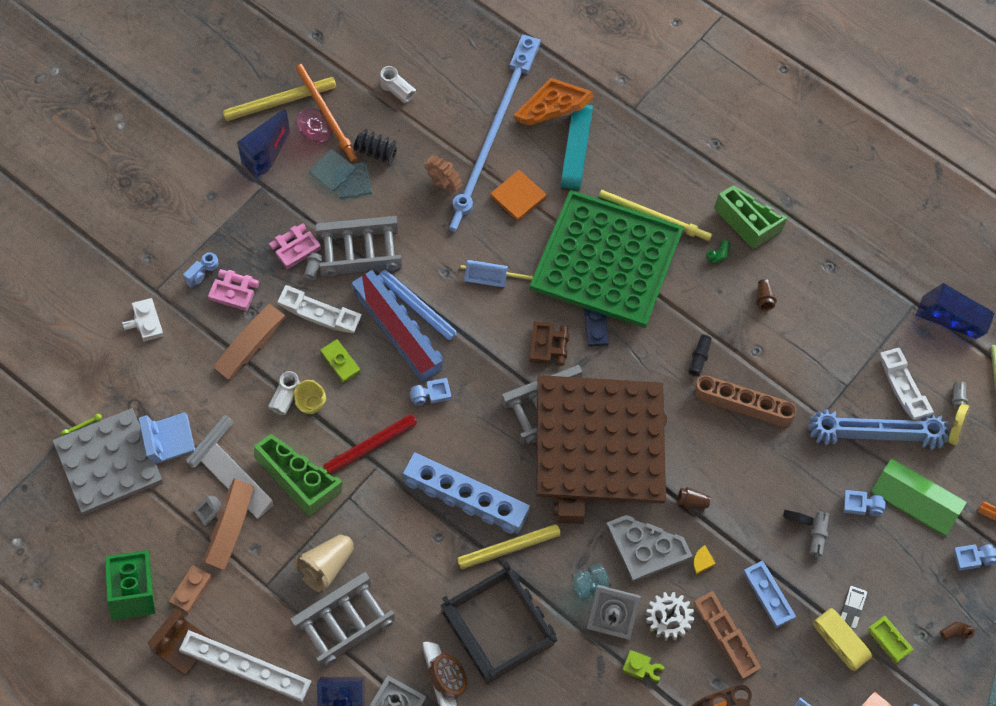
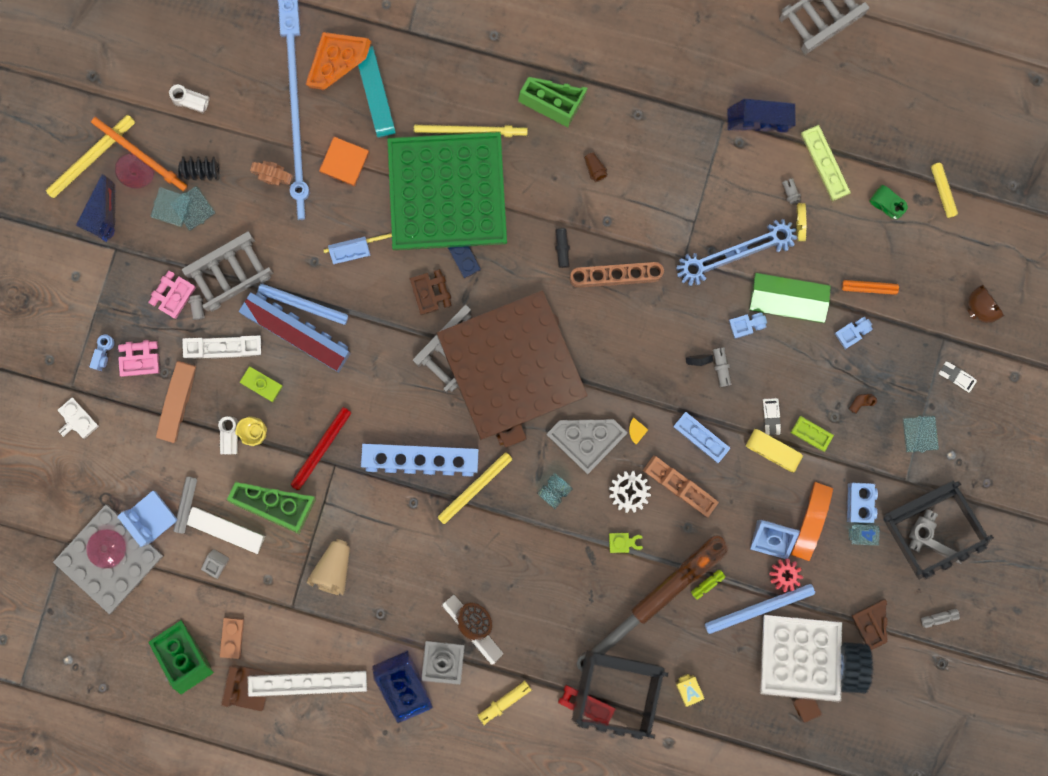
camera: 25 degrees left, 20 degrees up
(97, 417) = (80, 524): lime hinge -> none
(114, 455) = (115, 548): none -> clear pink dish
(229, 523) = (237, 569): nougat slope -> none
(342, 598) = (350, 610): light grey fence -> none
(436, 390) = (355, 376): light blue plate -> none
(469, 642) = (479, 584): black window -> none
(613, 612) = (584, 509): light grey plate -> none
(692, 499) = (607, 381): reddish brown cone -> none
(719, 255) = (542, 143): green arm -> none
(903, 384) = (743, 202): white slope -> none

